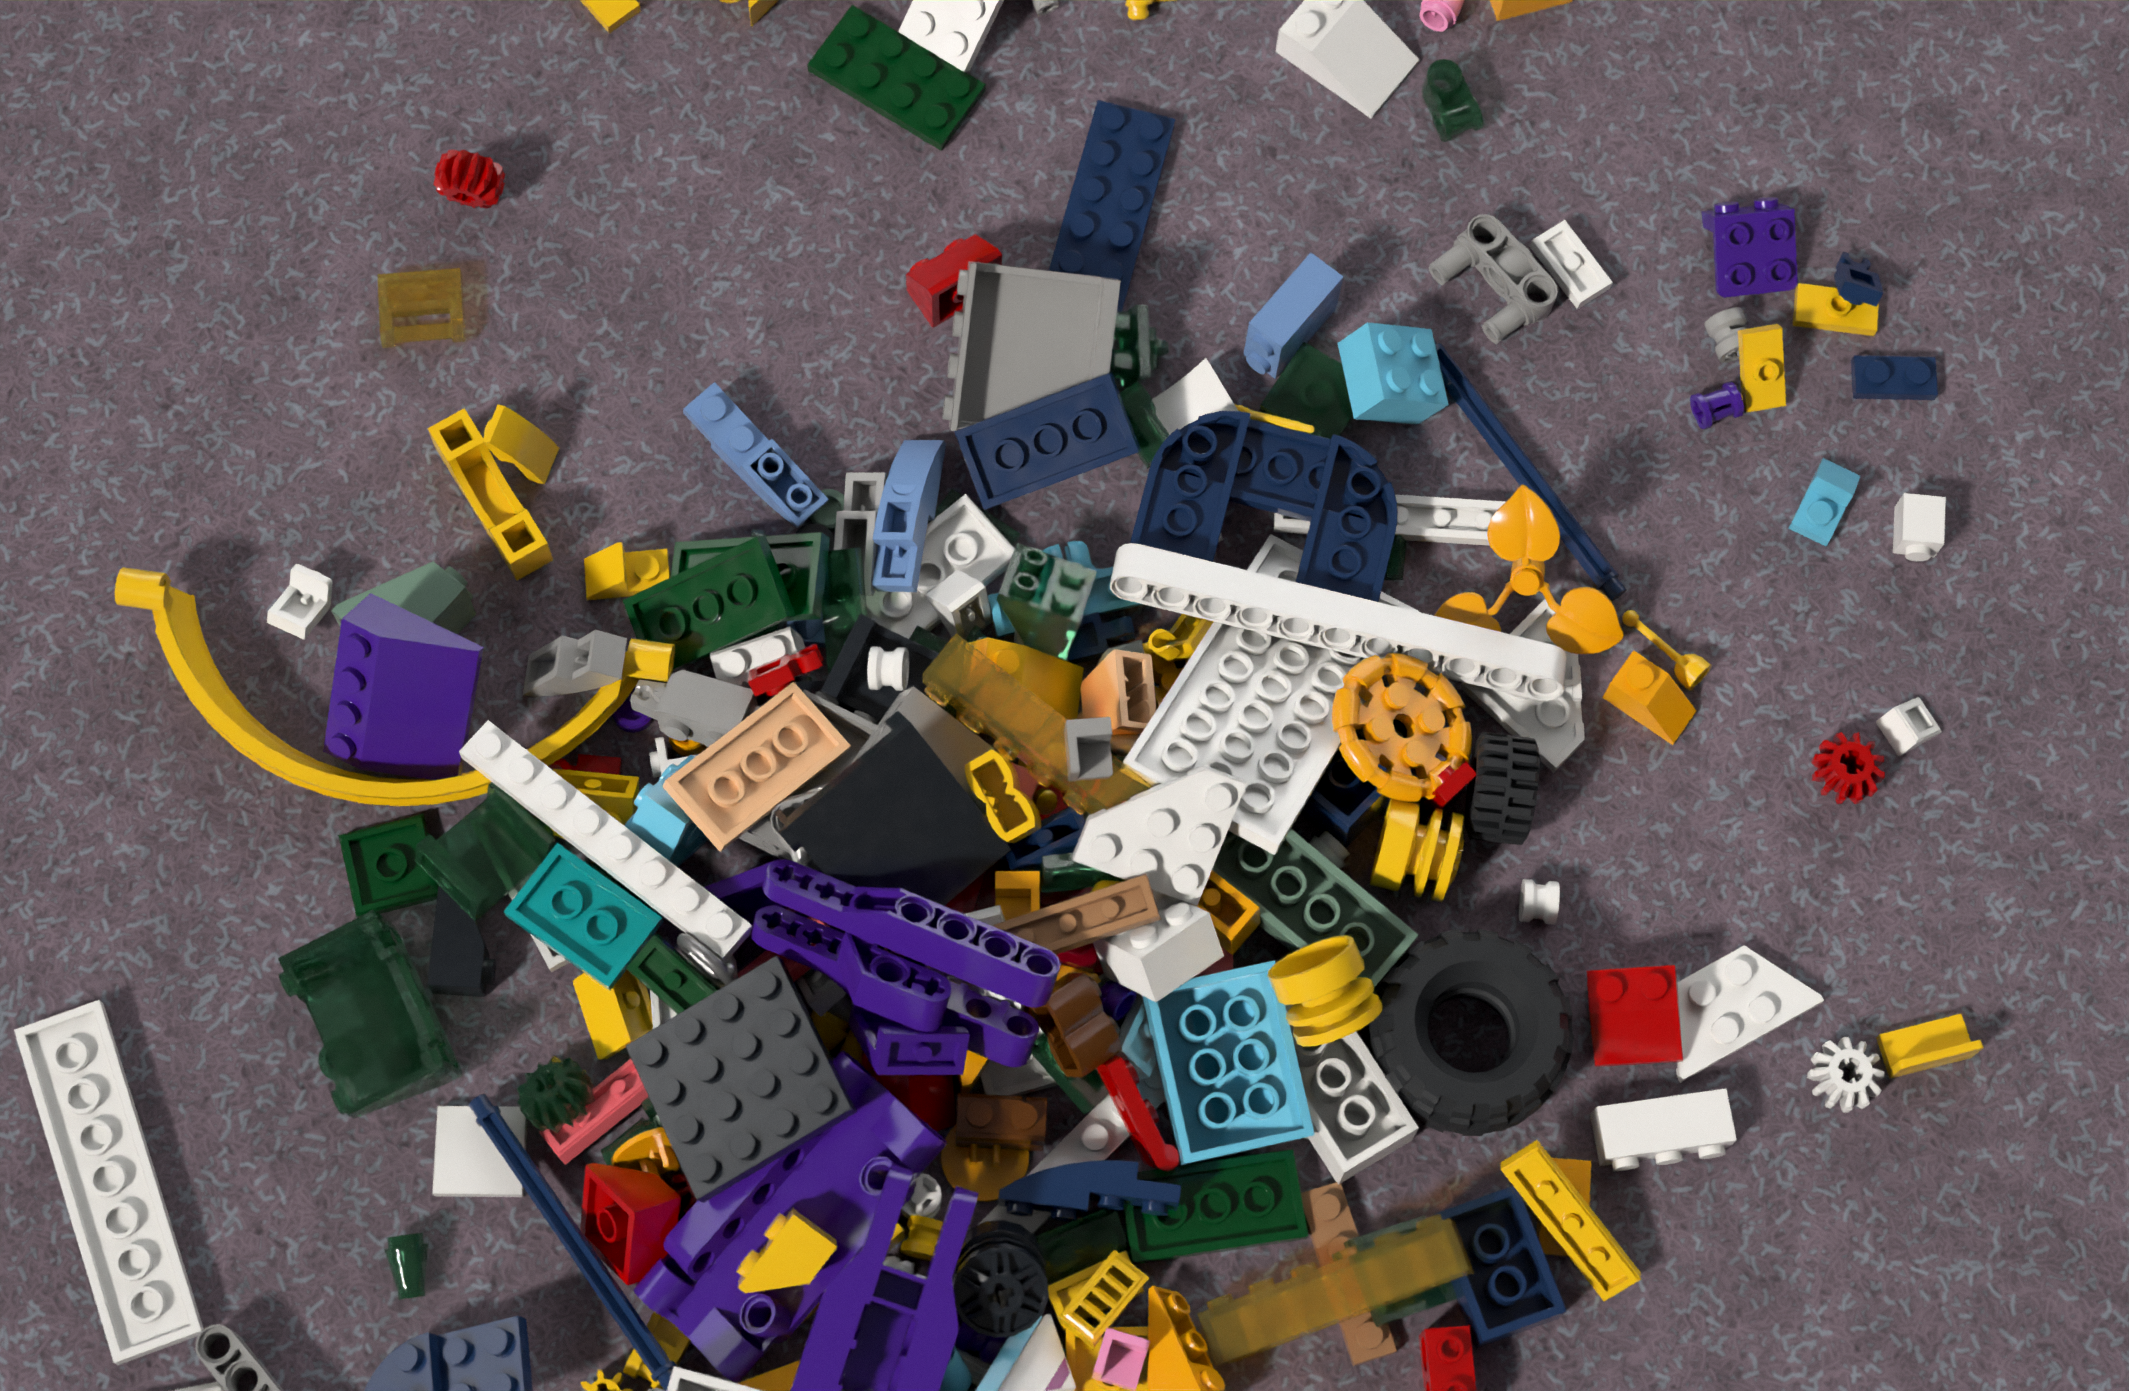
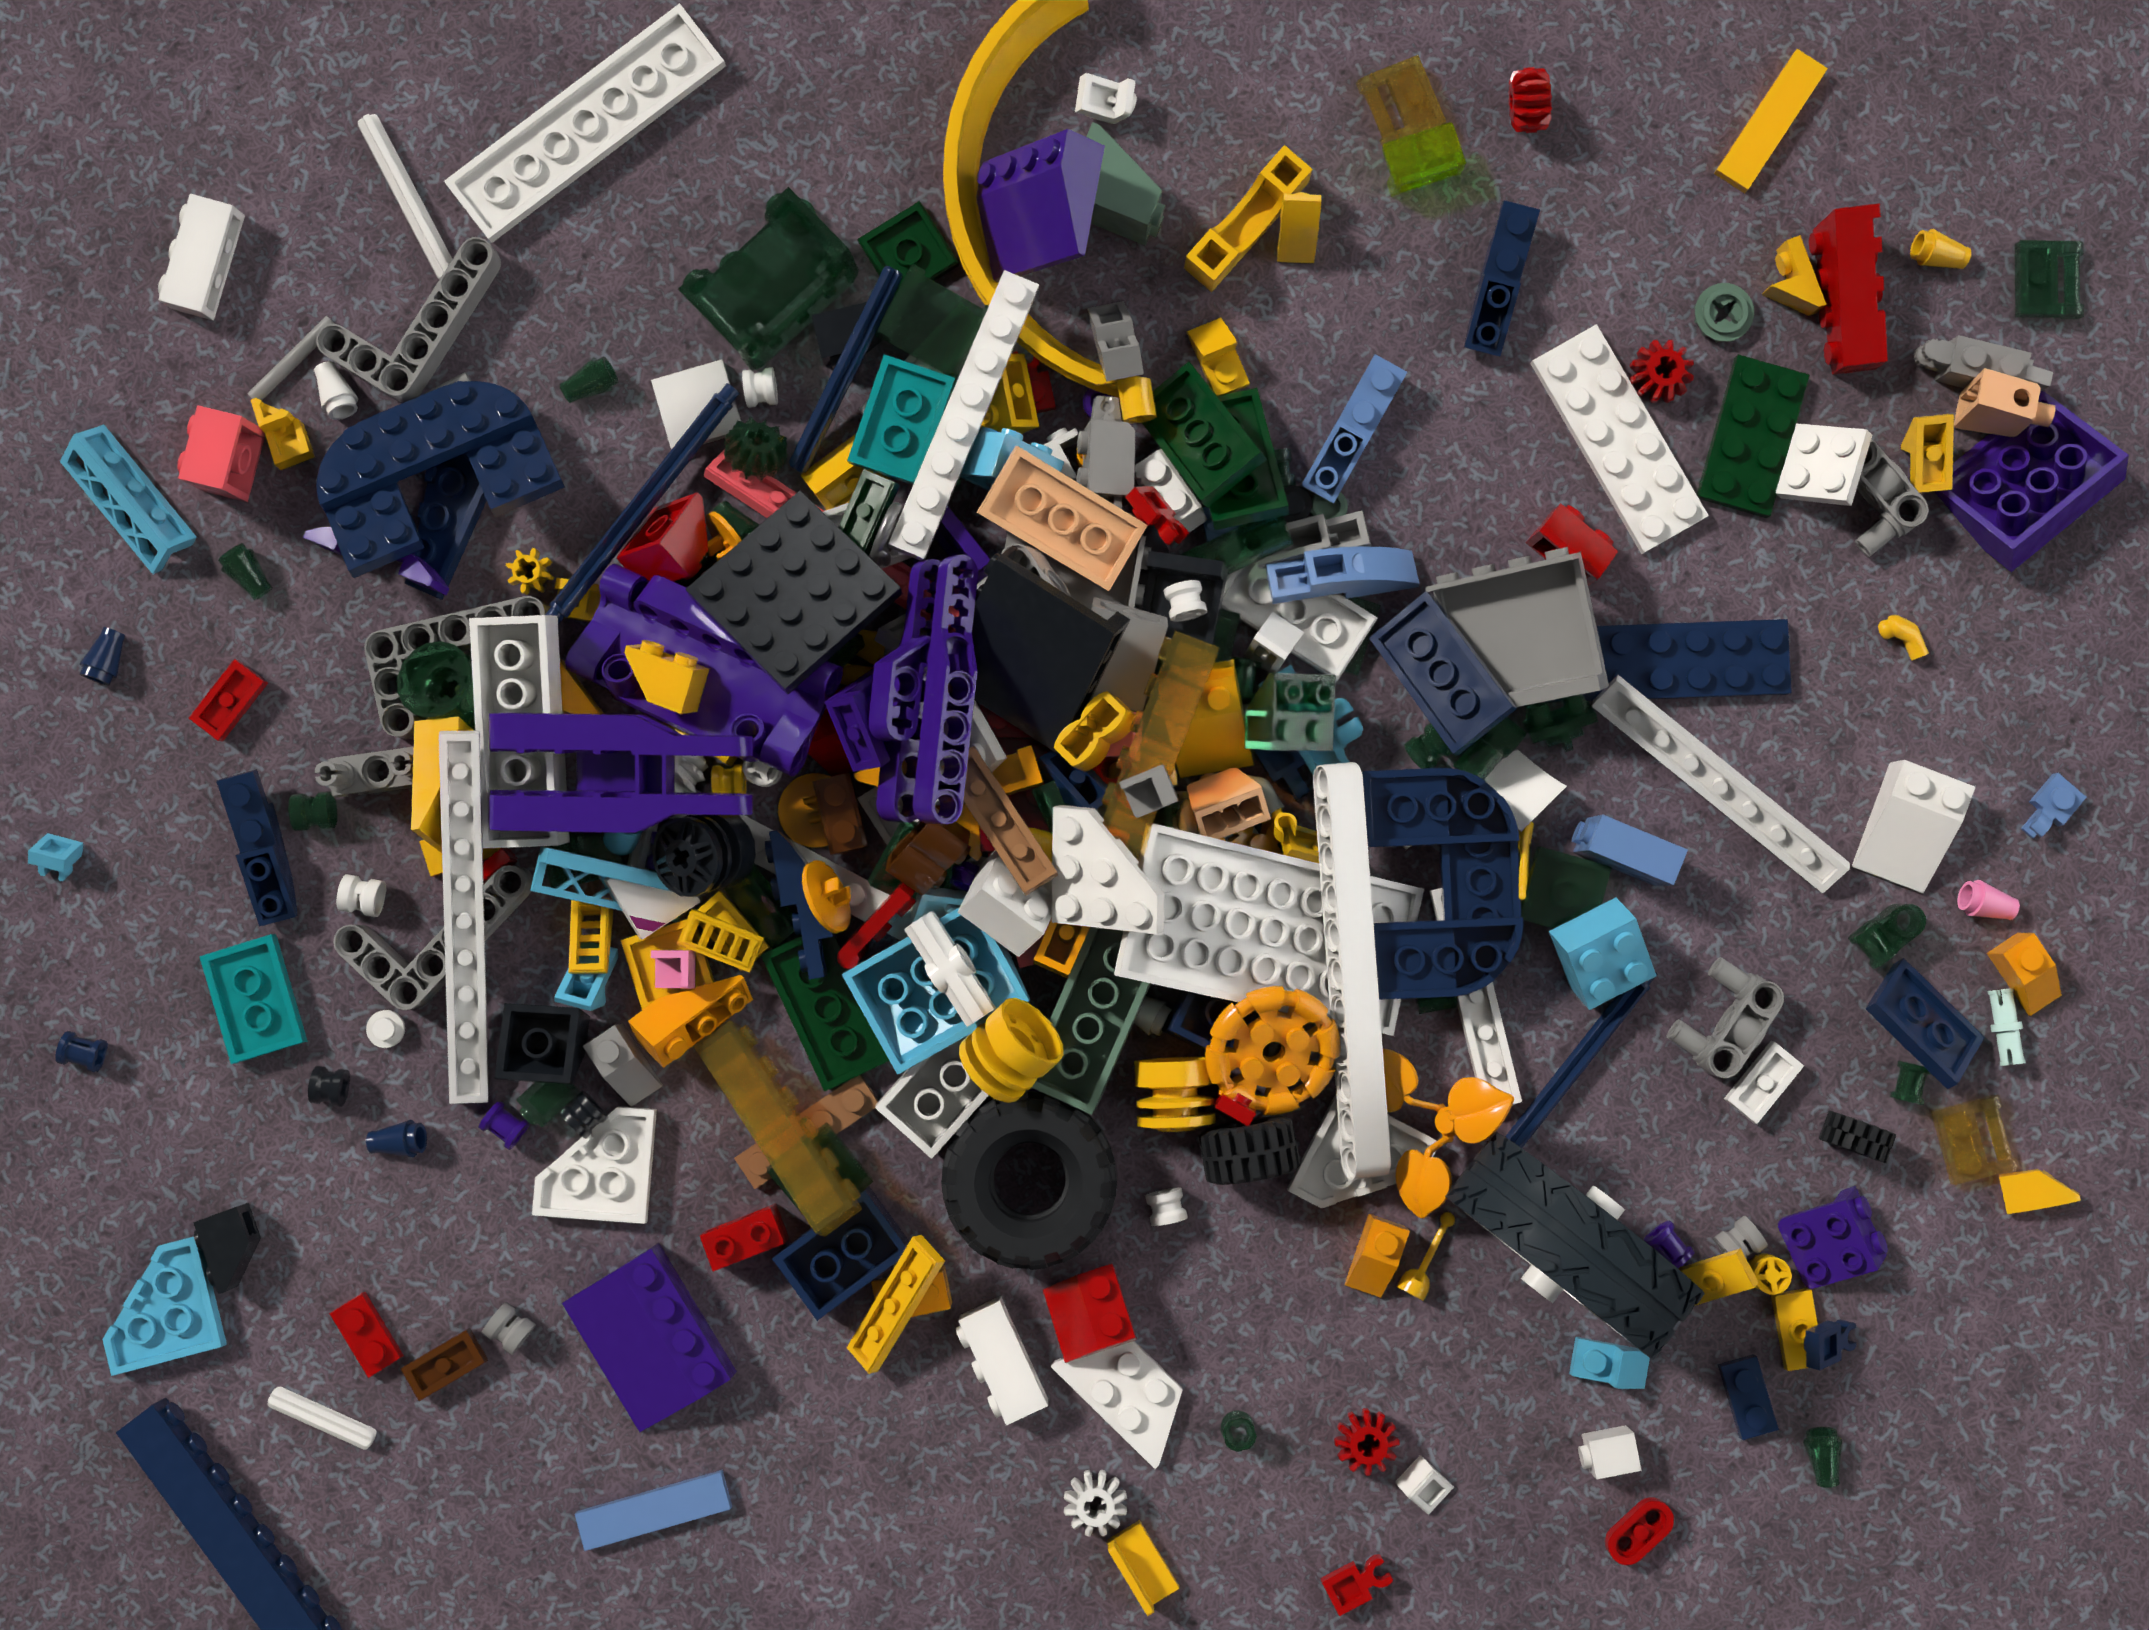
camera: 80 degrees right, 15 degrees up
(485, 1071) = (760, 387): none -> white wheel
(490, 301) = (1423, 158): none -> clear neon green panel
(503, 964) = (845, 369): none -> dark blue axle
(645, 266) = (1501, 278): none -> dark blue slope
(764, 50) = (1722, 295): none -> sand green gear
(807, 153) = (1646, 374): none -> red gear
(855, 204) = (1619, 439): none -> white plate
(1090, 1153) = (826, 896): none -> light orange piece
(1120, 481) = (1427, 748): none -> clear green wheel
(1215, 1032) = (950, 968): none -> white piece
(1249, 211) = (1720, 784): none -> white plate
(1553, 93) = (1925, 1023): none -> dark blue plate
(1578, 22) = (2006, 1027): none -> light aqua pin
(1610, 126) = (1910, 1083): none -> clear green bush
(1652, 189) = (1857, 1136): none -> black tyre
(1684, 99) = (1962, 1141): none -> clear yellow plate
(1691, 472) = (1575, 1244): none -> black wheel
(1751, 48) = (2034, 1191): none -> yellow slope
(1775, 309) = (1777, 1276): none -> yellow wheel
(1809, 908) = (1235, 1419): none -> clear green bush
(1970, 320) = (1824, 1454): none -> clear green cone
(1998, 832) = (1349, 1586): none -> red plate
(2012, 523) = (1642, 1534): none -> red plate

